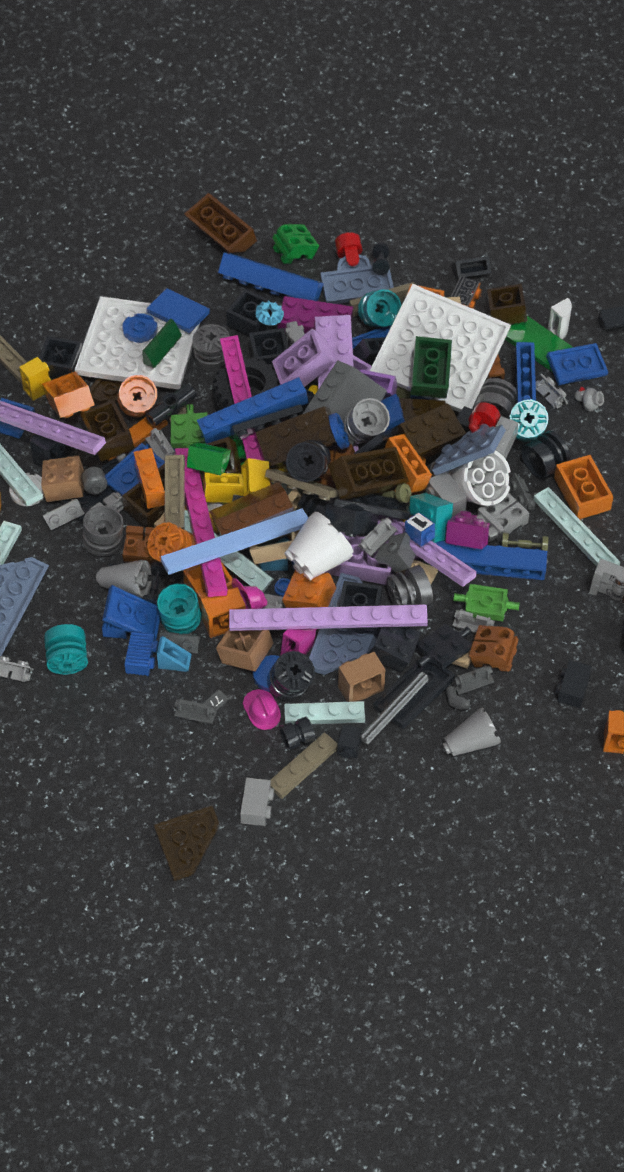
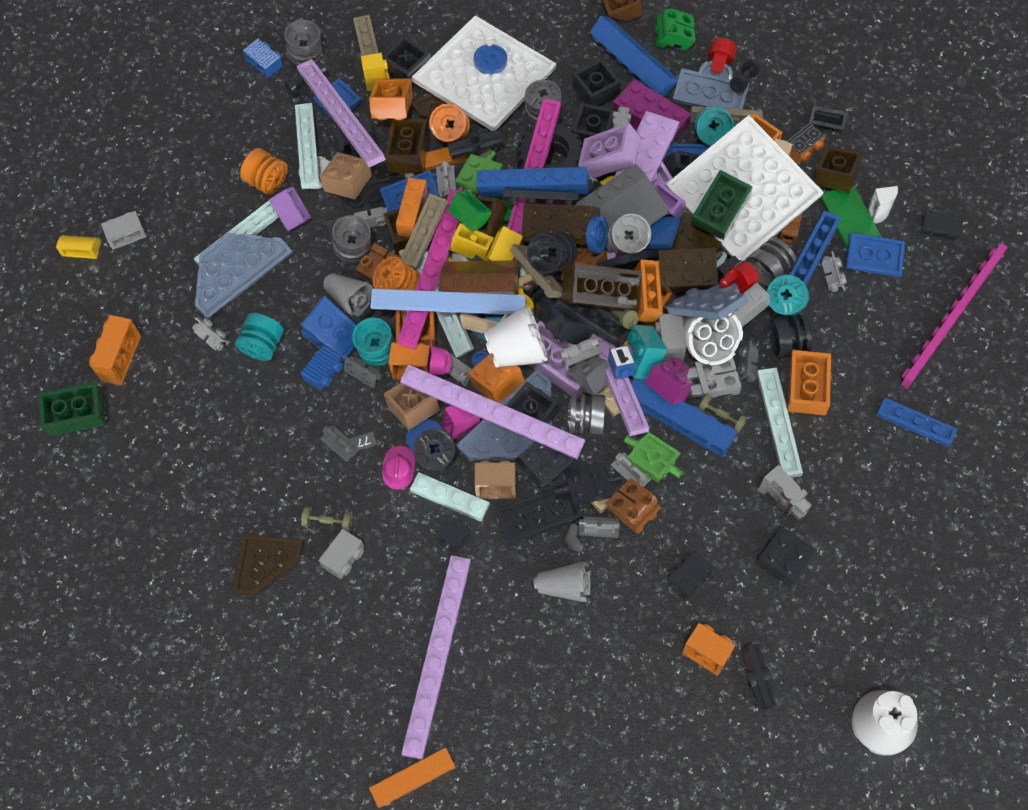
camera: 30 degrees right, 10 degrees up
(25, 528) = (290, 208): none -> medium lavender brick
(63, 514) = (330, 208): light grey hinge -> none
(94, 480) = (370, 188): dark grey head -> none
(161, 344) = (498, 82): dark green slope -> none
(172, 656) = (347, 382): dark azure slope -> none
(183, 311) = (533, 55): blue tile -> none
(223, 779) = (307, 517): none -> olive wheel
(264, 317) = (601, 91): medium azure gear -> none
(295, 733) = (412, 506): black wheel -> none
(303, 765) = (402, 538): dark tan plate -> none
(394, 707) = (508, 523): axle -> none
(394, 850) = (436, 658): none -> lavender plate
(432, 957) = (412, 778): none -> orange tile
(590, 398) = (868, 294): light grey animal -> none

